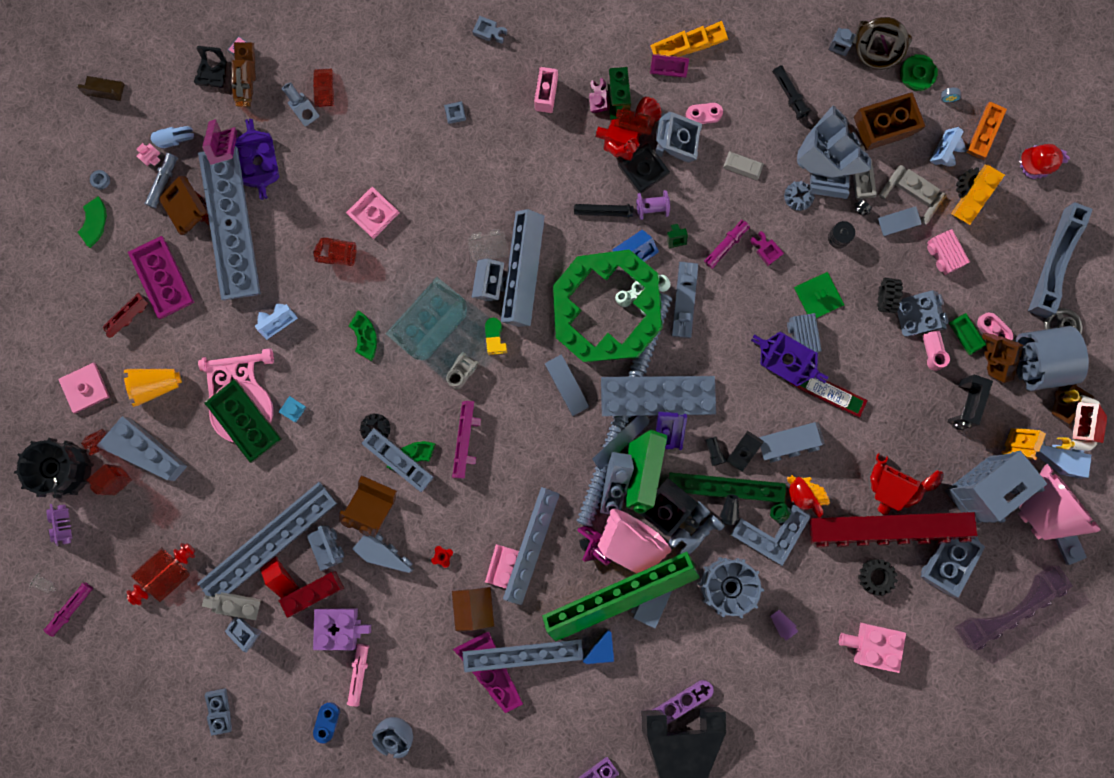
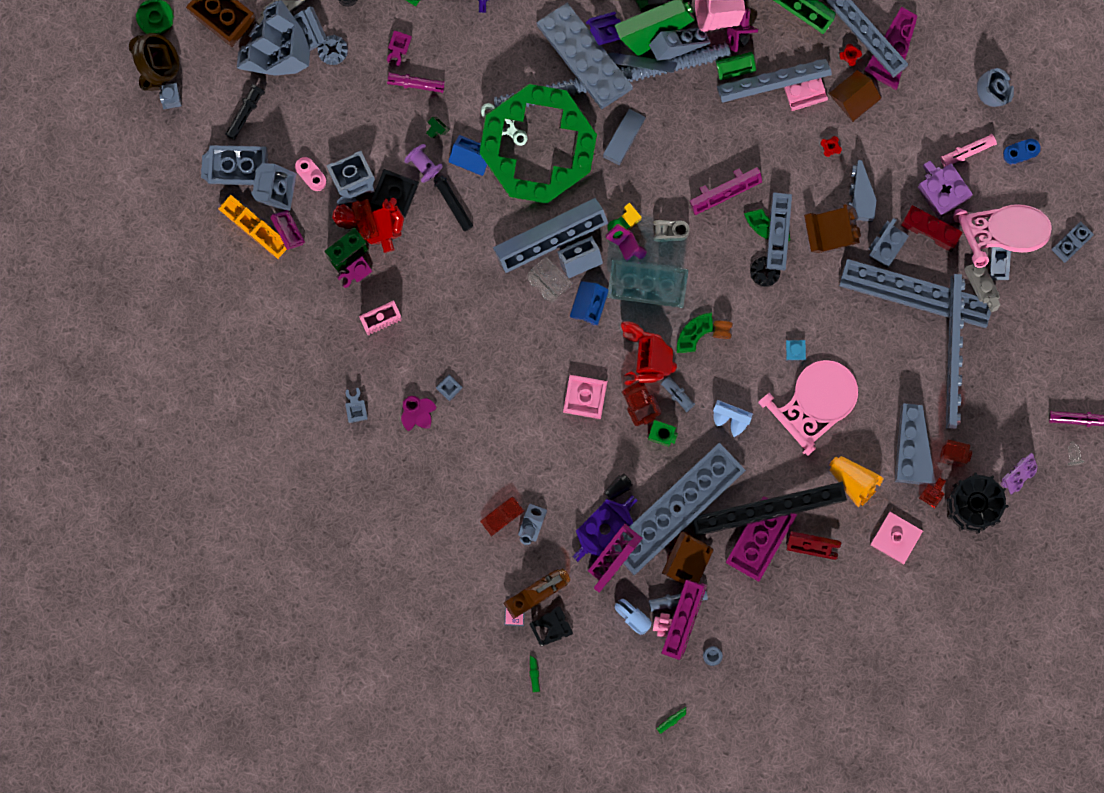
camera: 130 degrees left, 0 degrees up
(75, 116) = (671, 721): none -> green piece
(94, 221) = (752, 632): green tile -> none
(102, 88) = (630, 712): dark brown panel -> none
(136, 168) = (684, 619): none -> magenta fence
(160, 574) = (1000, 361): clear red plate -> none
(174, 299) = (769, 508): none -> black tile
(185, 35) = (534, 674): none -> green piece
(196, 542) = (955, 342): none -> sand blue plate
(243, 420) = (833, 382): dark green tile -> none
(262, 666) = (1010, 227): none -> bright pink piece
(277, 578) = (938, 266): red slope -> none
(282, 192) = (618, 486): none -> black cone
(298, 245) = (656, 427): none -> green brick
(323, 288) = (678, 394): none -> sand blue pin
(349, 359) = (722, 329): none -> dark orange wheel
(363, 284) = (654, 355): none -> red torso
(446, 265) = (589, 302): none -> blue panel
(449, 75) = (419, 415): none -> magenta plate
(469, 325) = (626, 243): none -> magenta bracket
(510, 634) = (855, 54): none -> red plate
(566, 521) = (735, 66): none -> green tile
(685, 300) = (486, 87): sand blue hinge -> none
(710, 71) = (274, 186): none -> sand blue slope
(743, 165) = (335, 113): light grey tile -> none
(748, 57) = (232, 164): none -> sand blue slope

